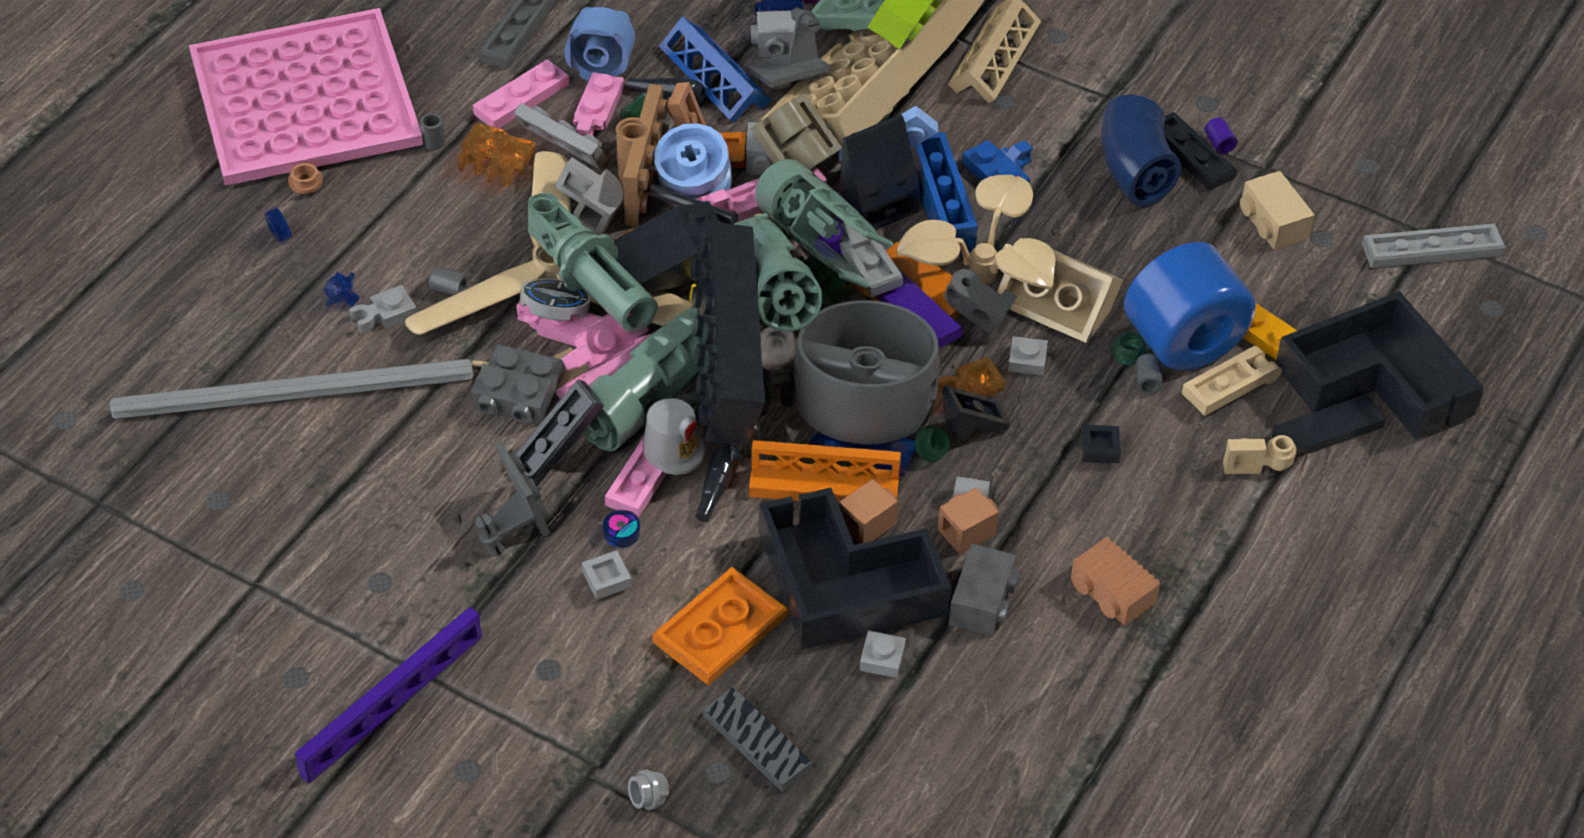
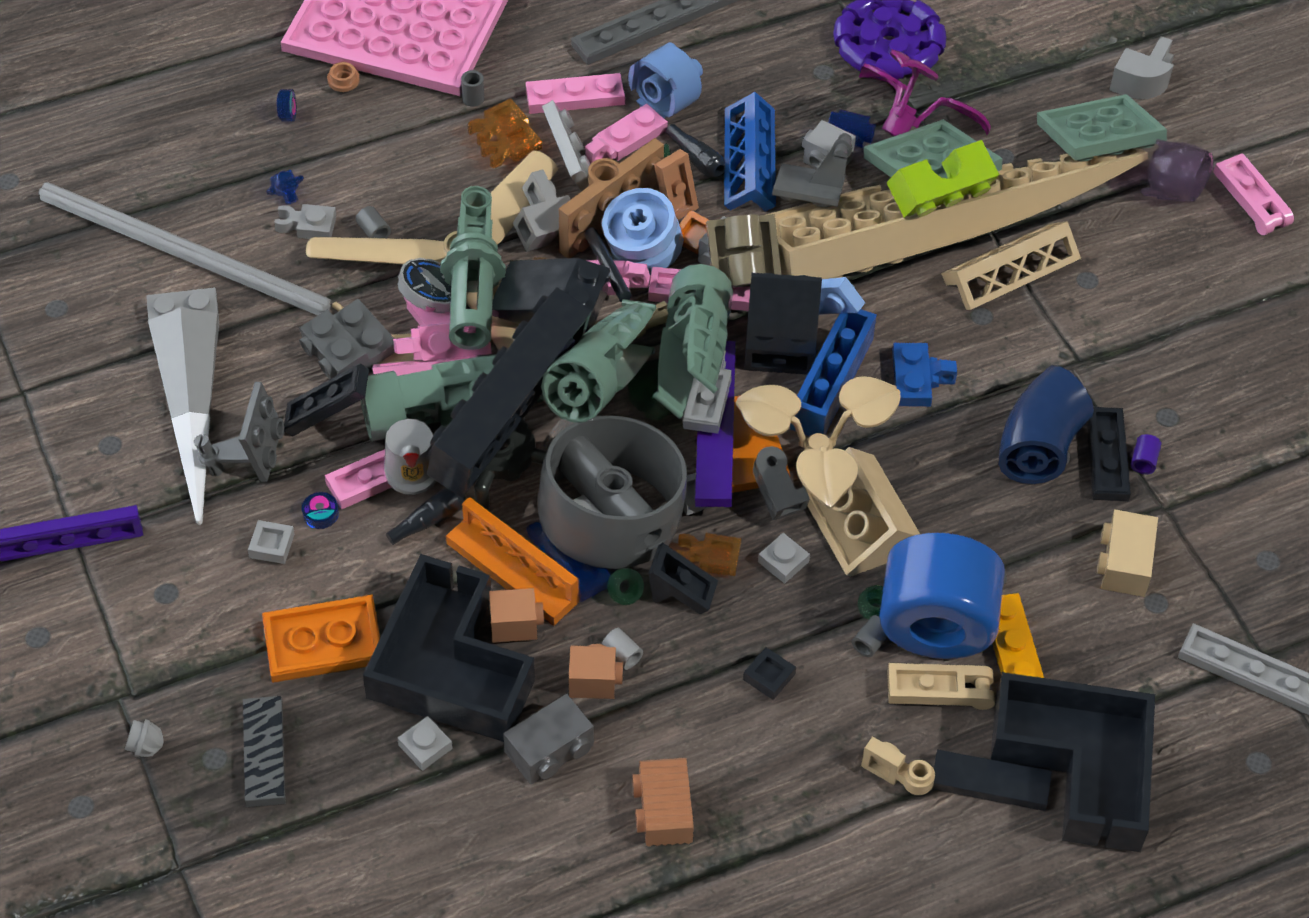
camera: 35 degrees right, 5 degrees up
(375, 463) = (185, 344): none -> light grey plate

